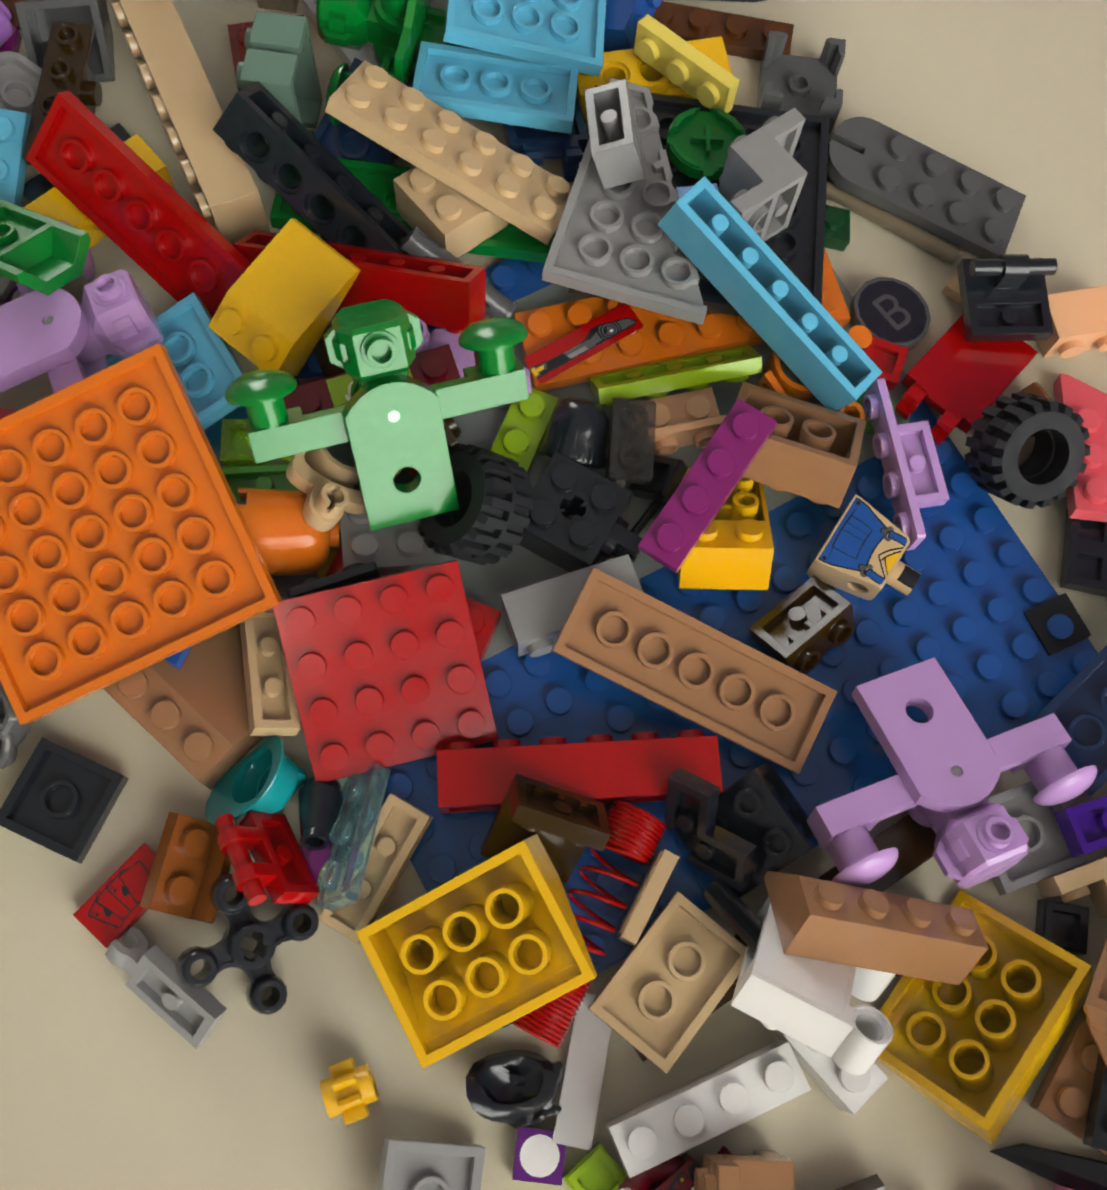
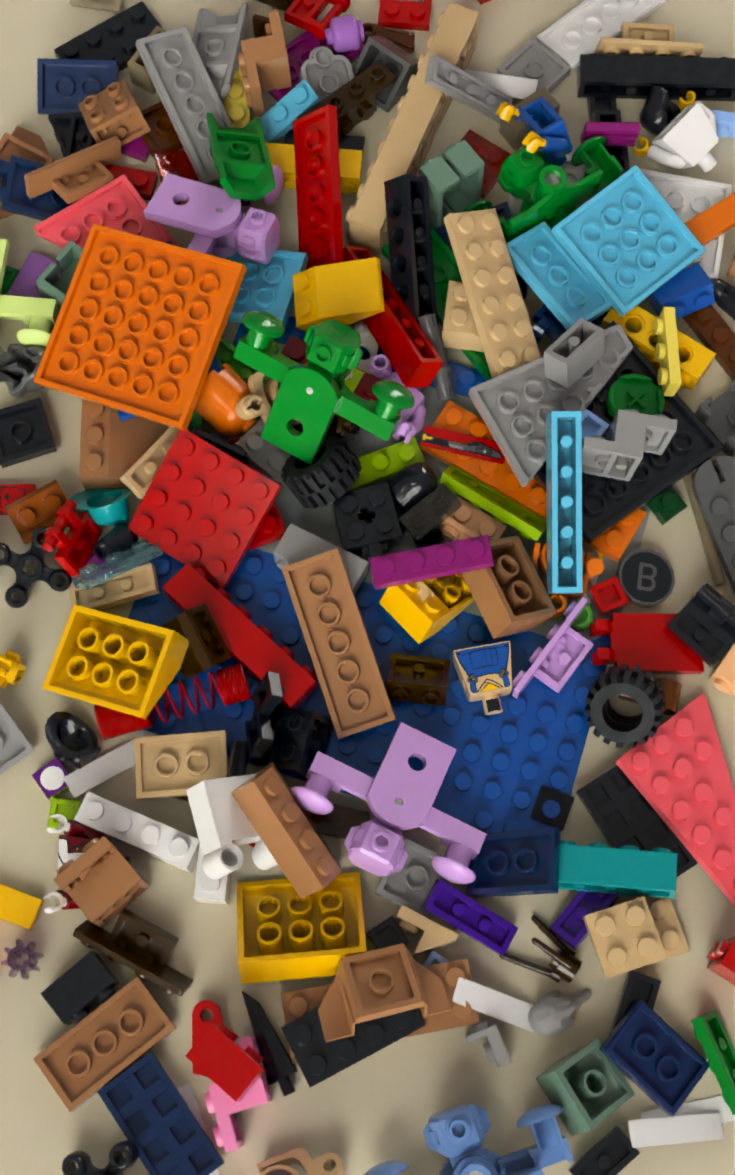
camera: 55 degrees right, 0 degrees up
(647, 897) = (210, 719): tan tile -> none

